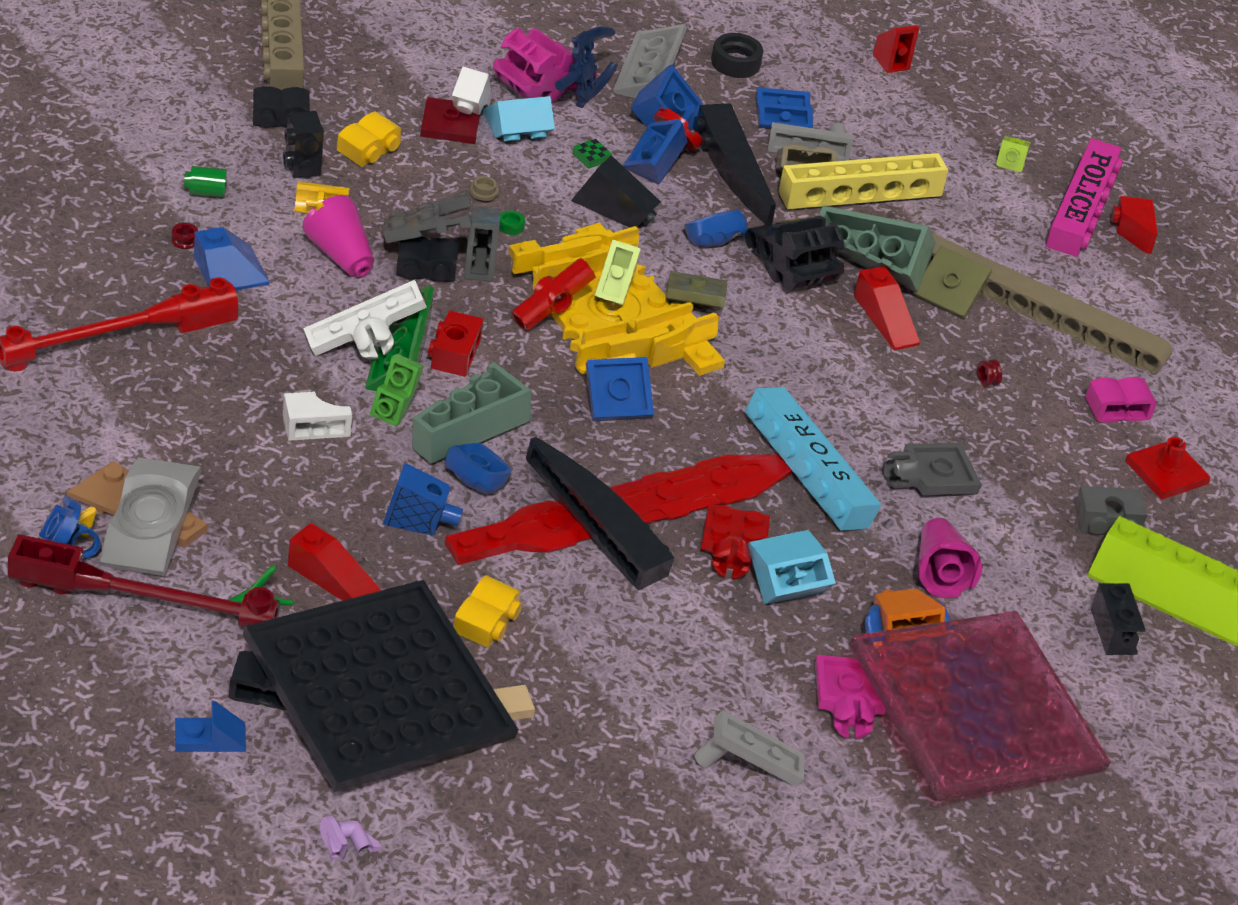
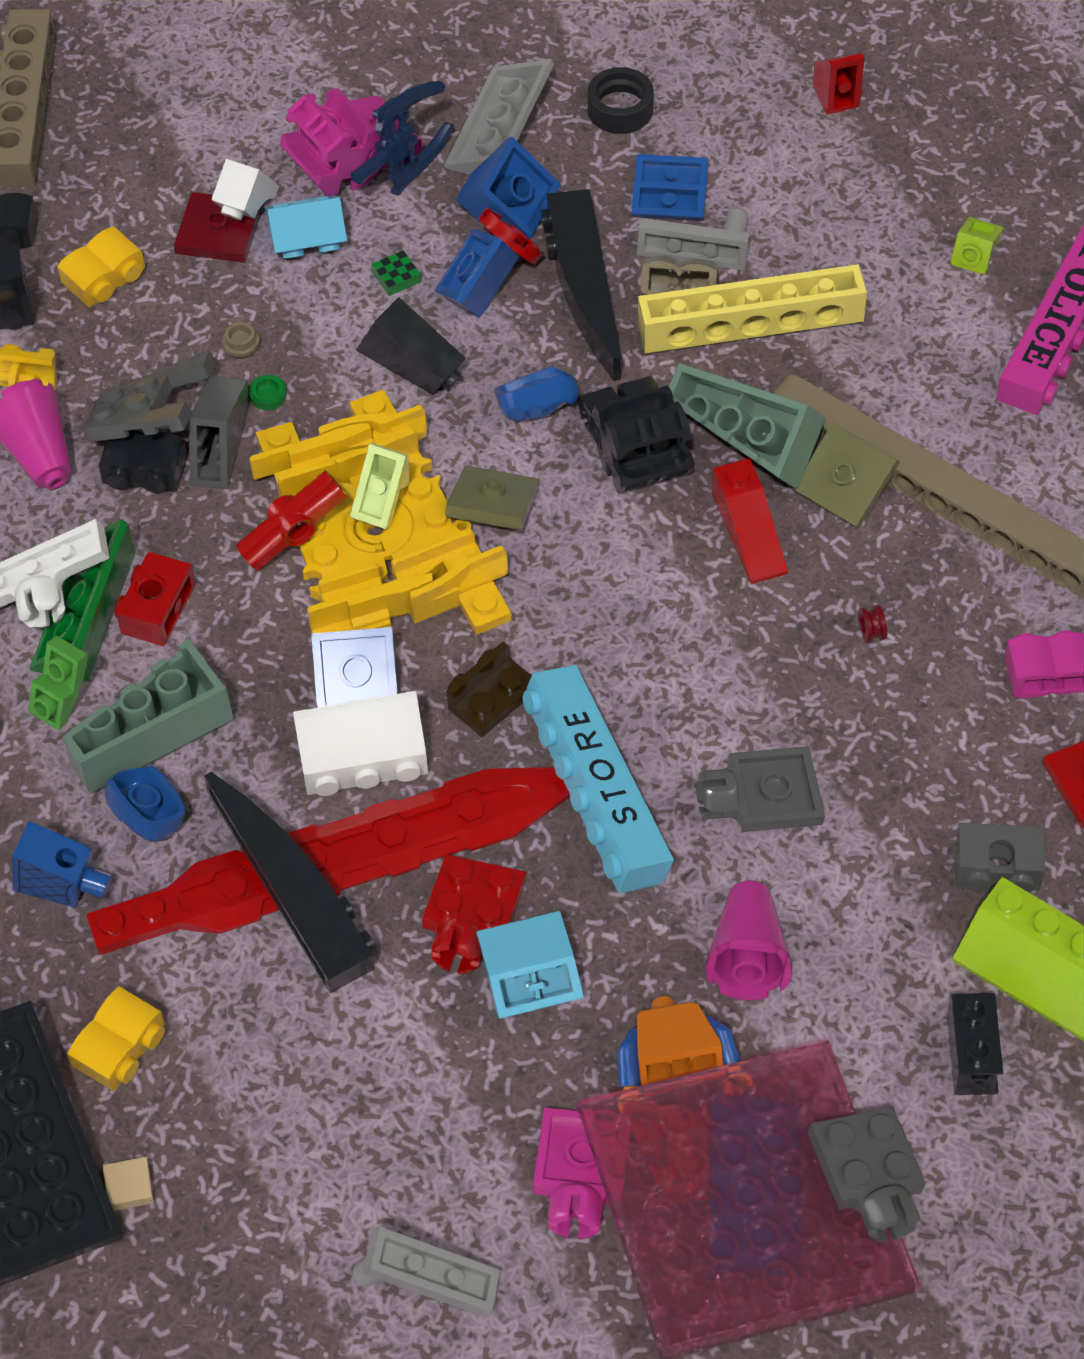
camera: 15 degrees right, 15 degrees up
(635, 430) = (361, 743): none -> white slope
(718, 406) = (488, 690): none -> dark brown bracket
(1065, 684) = (870, 1170): none -> dark grey plate

